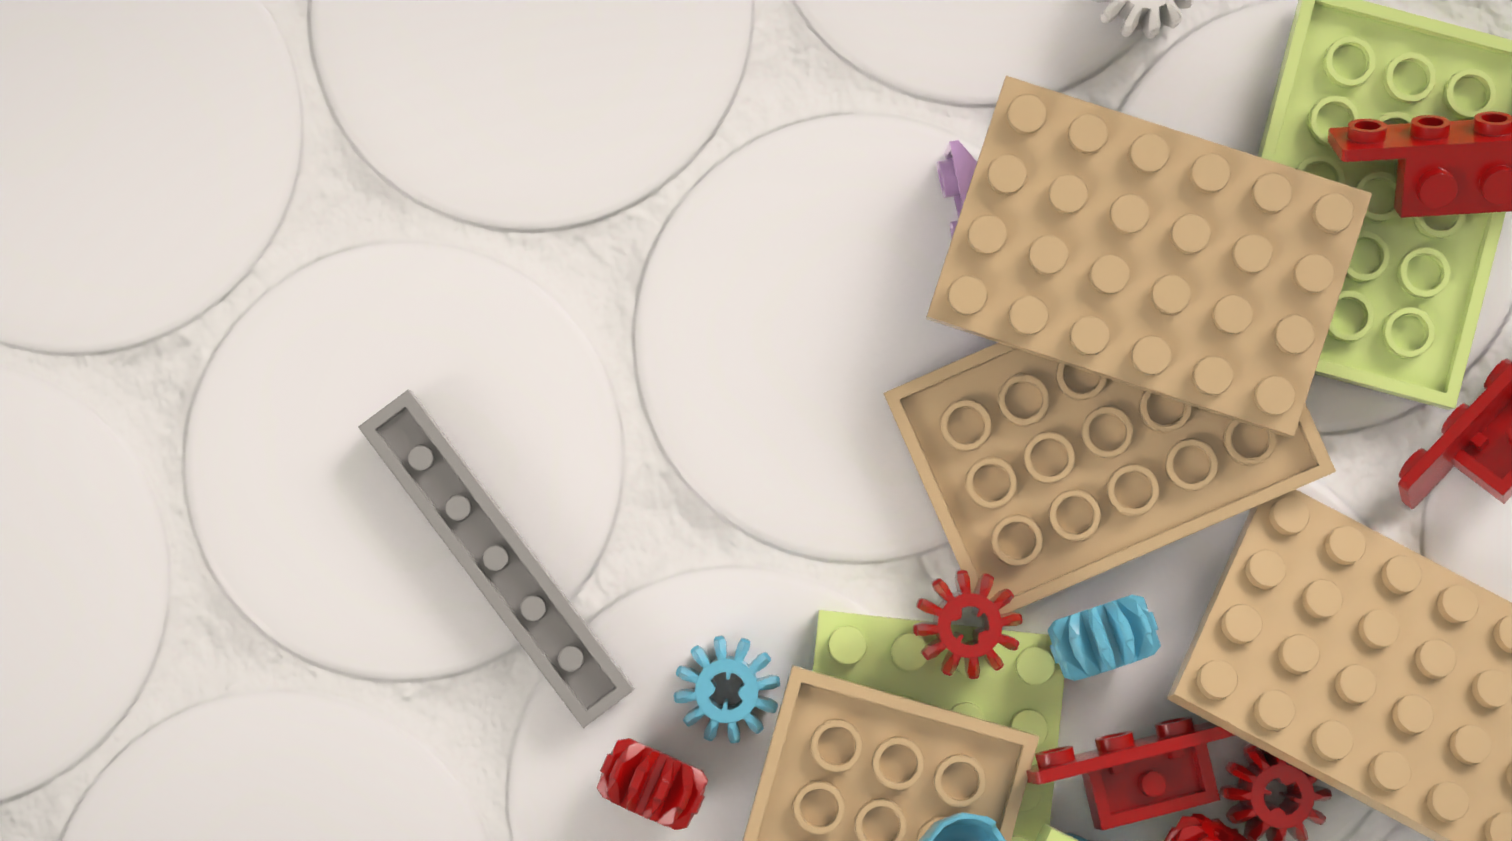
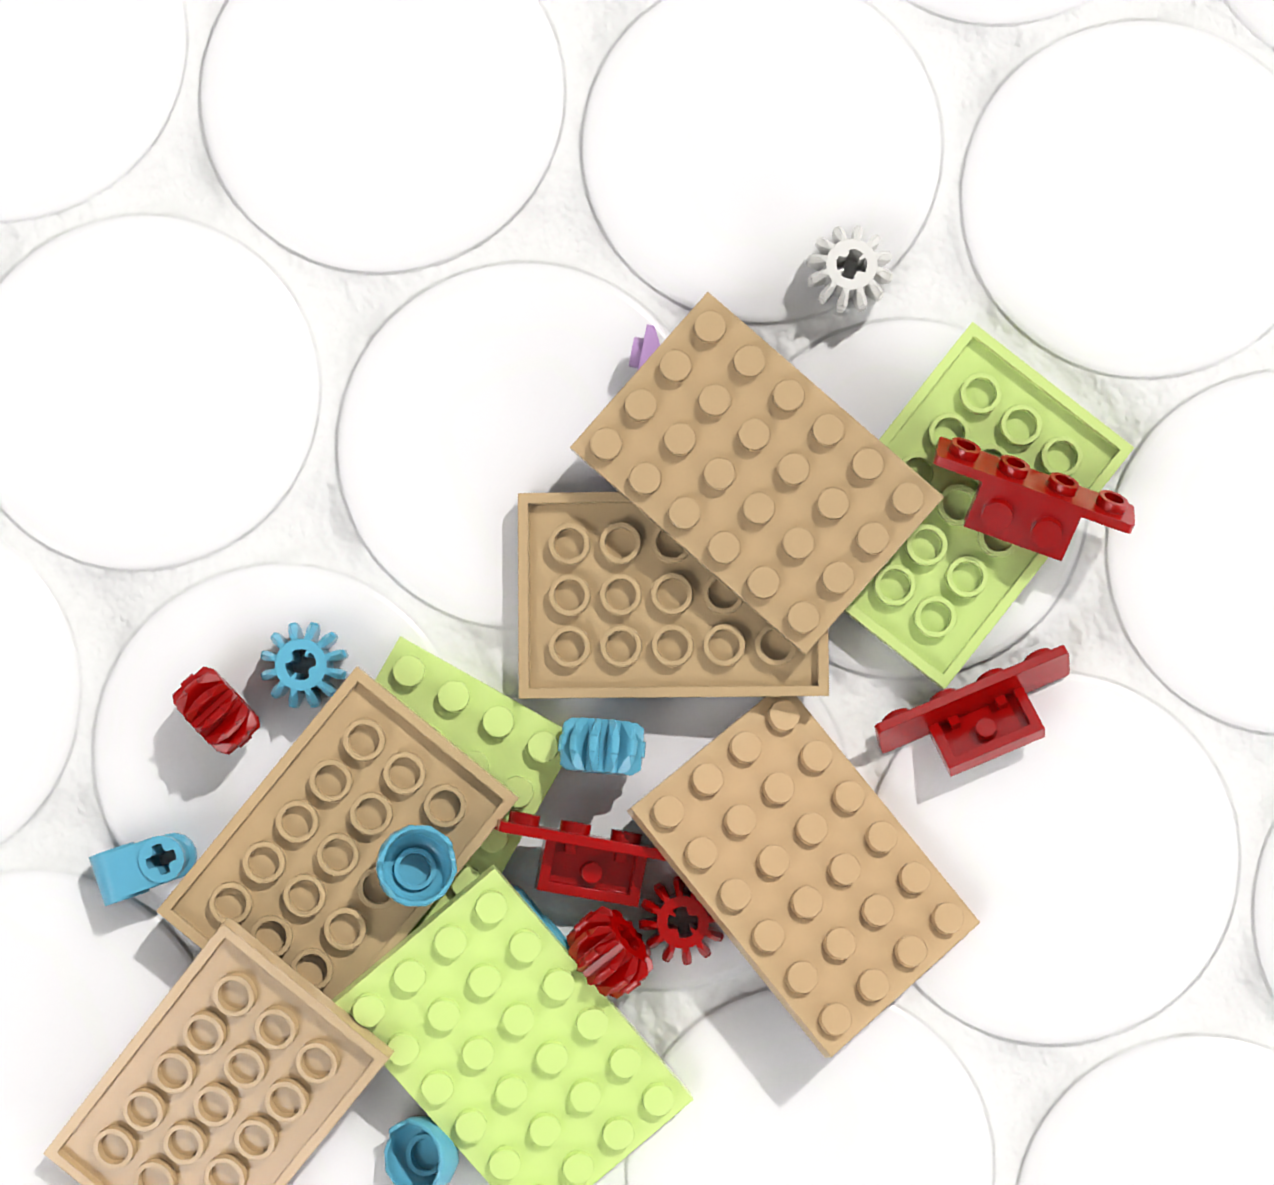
camera: 25 degrees right, 0 degrees up
(496, 558) = (175, 493): light grey plate -> none
(984, 637) = (494, 675): red gear -> none

